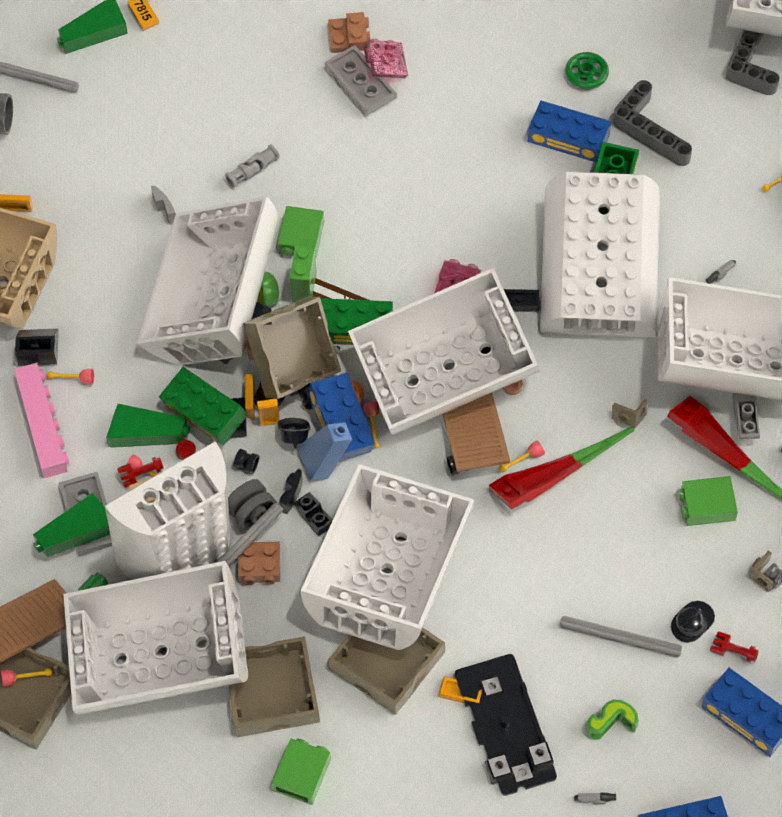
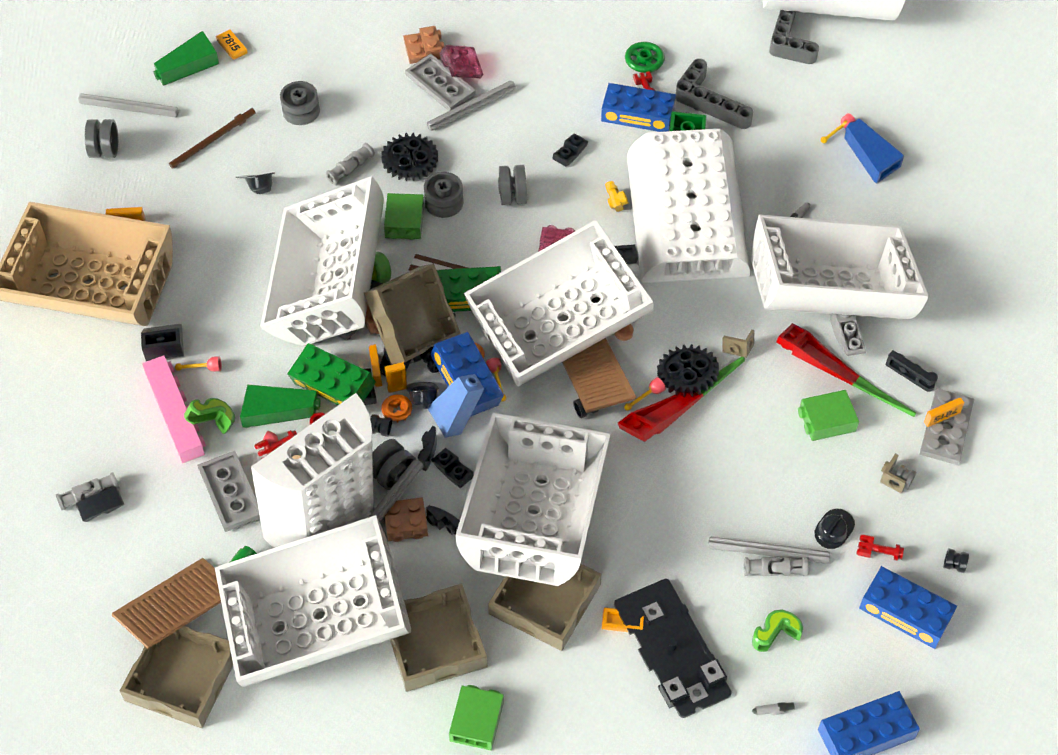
camera: 10 degrees left, 5 degrees down
(9, 676) = (167, 658): hinge -> none
(73, 528) = (218, 504): green slope -> none
(79, 426) = (211, 410): none -> bright green animal
(141, 103) = (238, 120): none -> reddish brown bar
(153, 177) = (259, 183): none -> black piece
(163, 203) = (269, 203): light grey slope -> none
(207, 90) = (299, 103): none -> dark grey wheel
(265, 436) = (393, 402): none -> orange gear
(294, 566) = (442, 519): none -> black slope
(299, 169) = (399, 162): none -> black gear
(303, 273) = (411, 246): bright green brick -> none
(345, 212) = (443, 194): none -> dark grey wheel
(390, 110) = (471, 105): none -> light grey axle
(418, 209) = (512, 184): none -> dark grey wheel
(489, 173) = (571, 149): none -> black slope
(528, 235) = (617, 199): none -> yellow plate
(574, 431) = (688, 370): none -> black gear
(582, 98) = (644, 80): none -> red hinge
(626, 654) = (777, 566): none -> light grey piece

